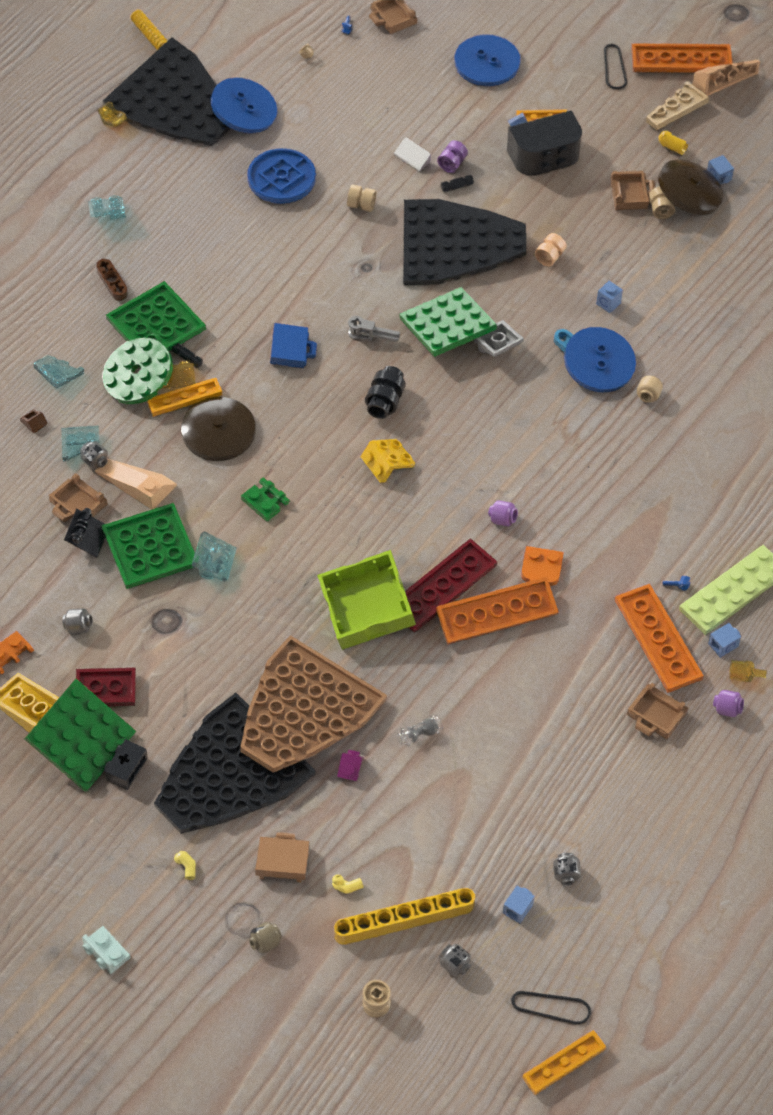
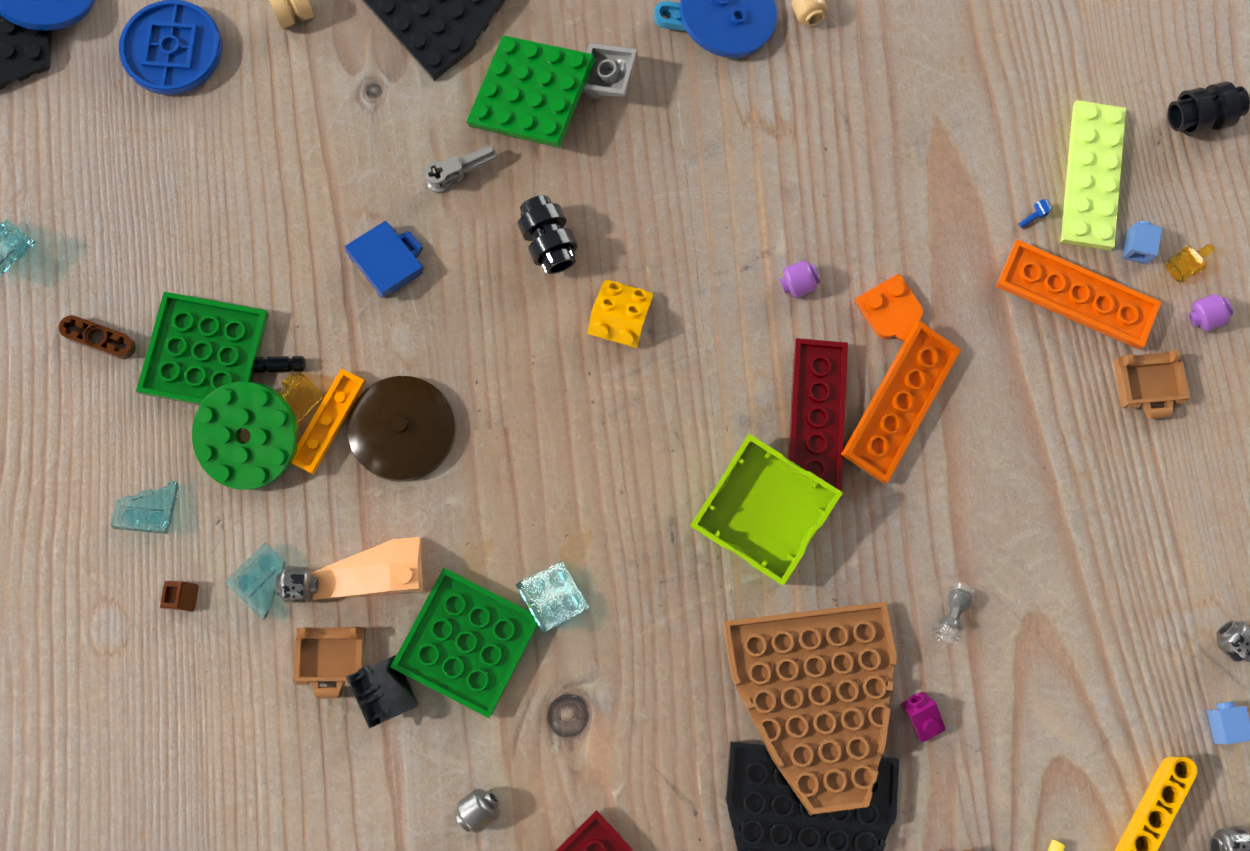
camera: 45 degrees left, 20 degrees up
(261, 503) = (535, 481): green plate -> none

